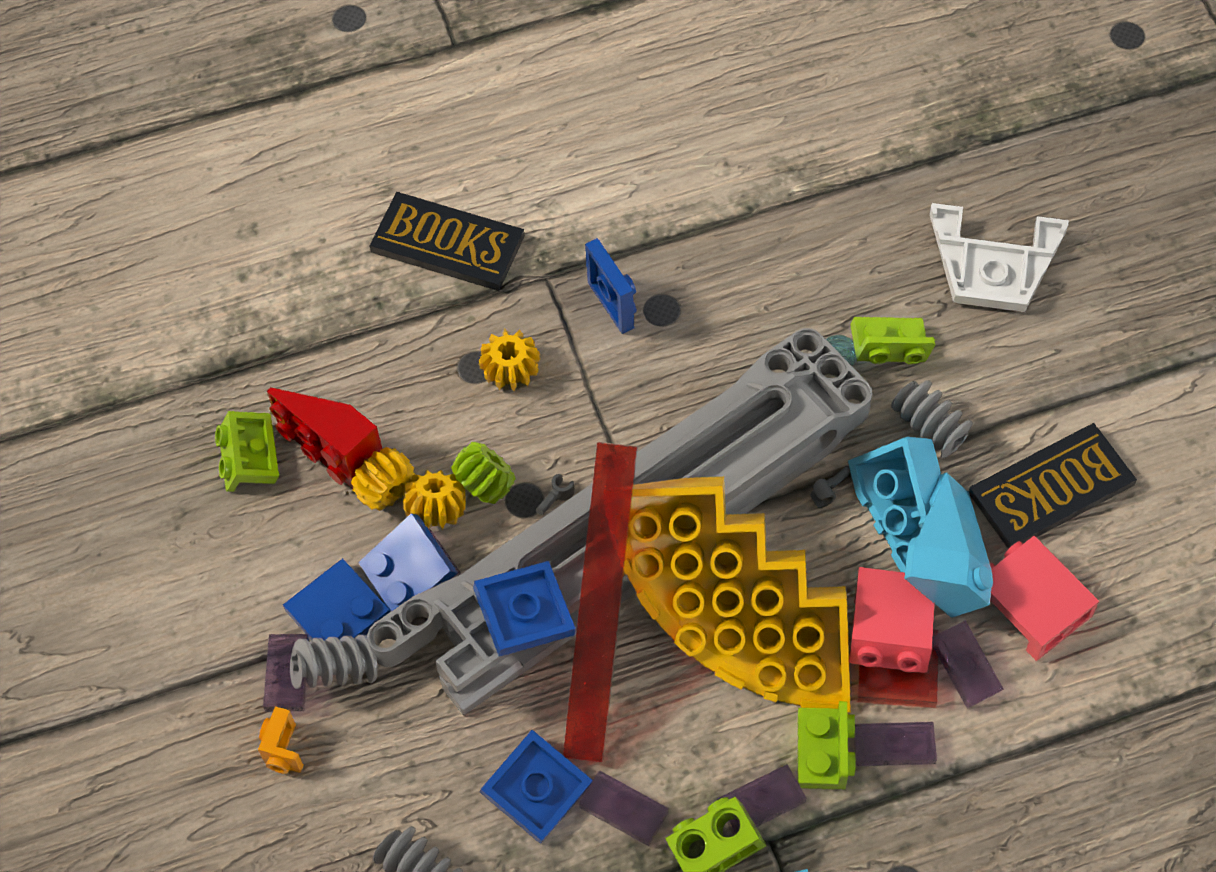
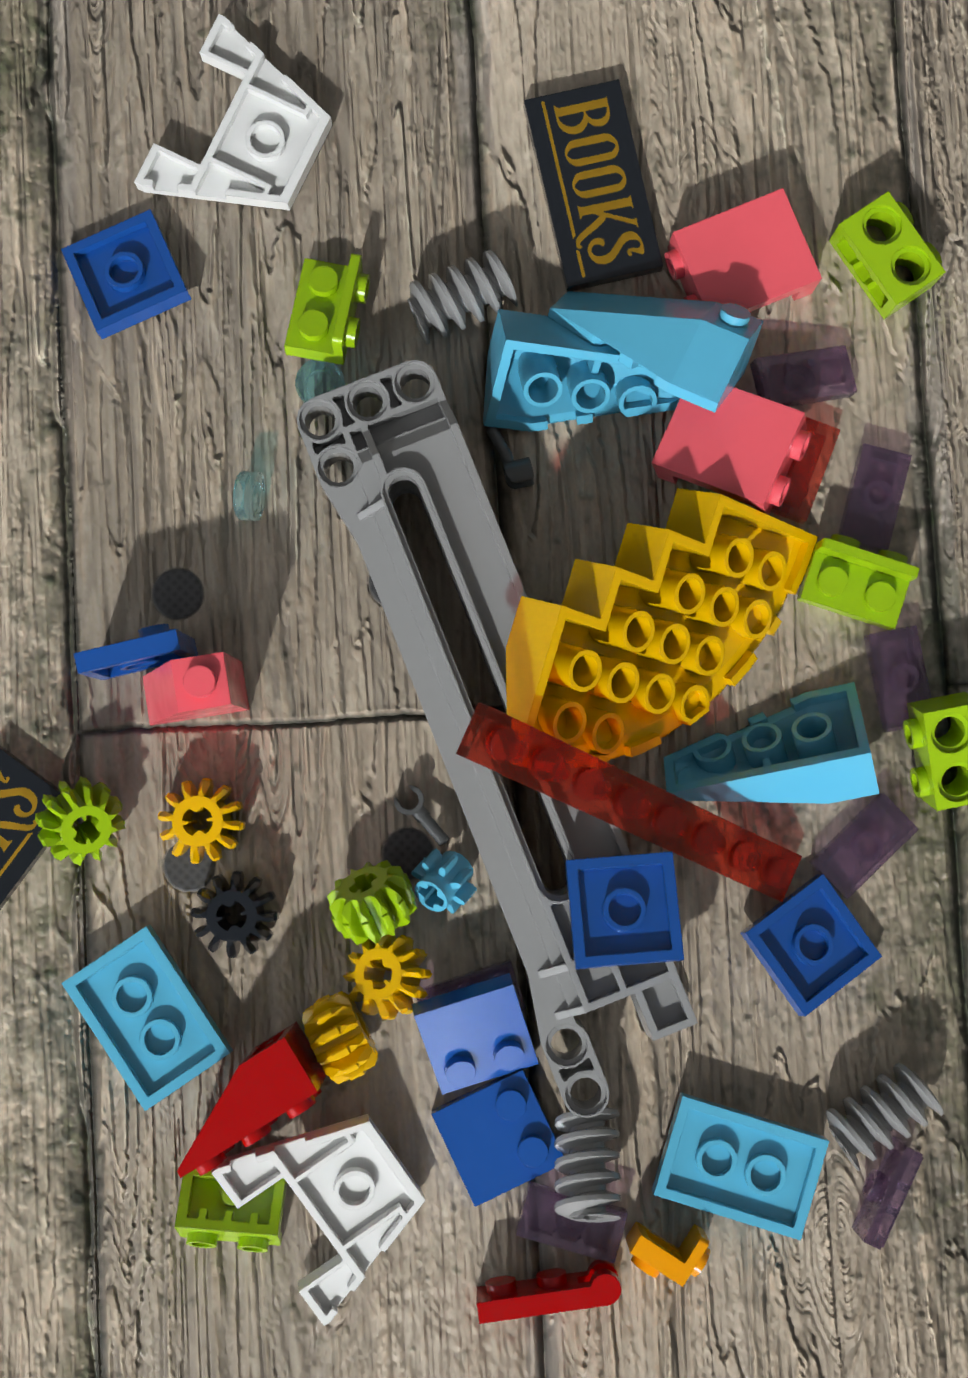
camera: 80 degrees left, 25 degrees up
(233, 668) = (548, 1293): none -> red plate
(277, 518) = (348, 1186): none -> white wing
(355, 779) = (740, 1166): none -> medium azure plate
(366, 363) = (147, 1017): none -> medium azure plate
(451, 396) = (228, 896): none -> black gear
(496, 275) = (81, 838): none -> lime gear
(510, 517) = (444, 881): none -> medium azure gear
(600, 330) = (195, 688): none -> coral slope
(674, 737) = (795, 756): none -> medium azure wedge
(743, 328) = (249, 495): none -> clear light blue tile
(868, 218) = (126, 274): none -> blue plate
(1078, 694) = (875, 261): none -> lime brick

